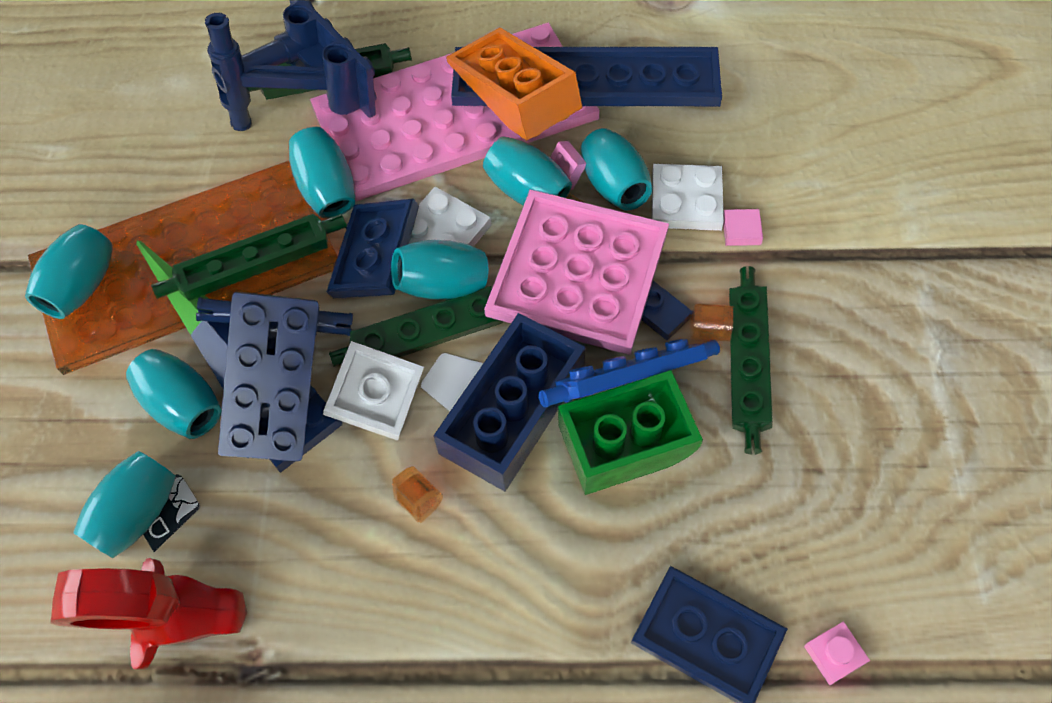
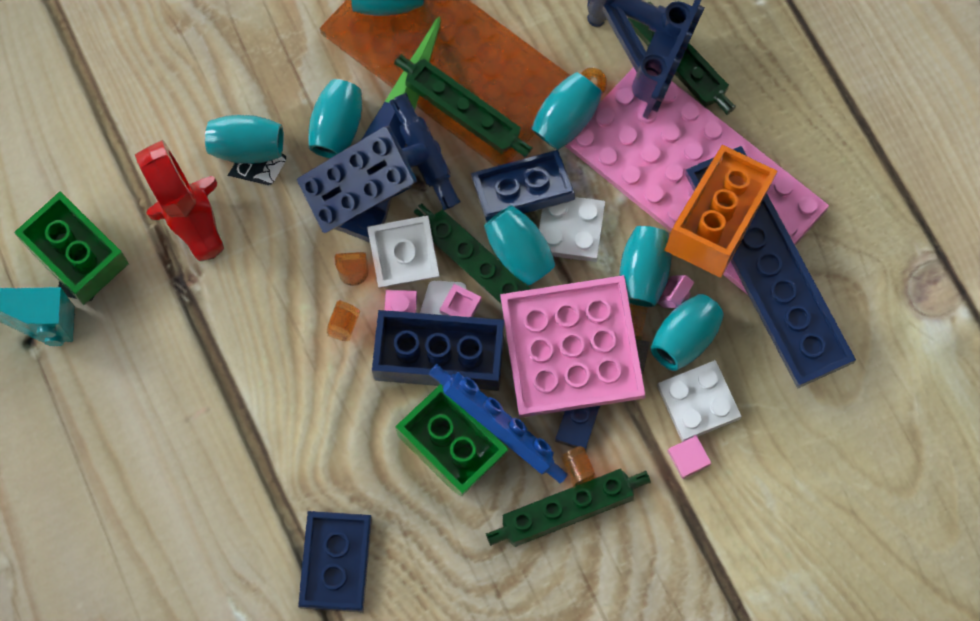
camera: 65 degrees right, 10 degrees up
(357, 454) = (352, 267): none -> clear orange brick
(426, 424) = (401, 301): none -> bright pink plate
(465, 359) = (460, 302): none -> bright pink plate

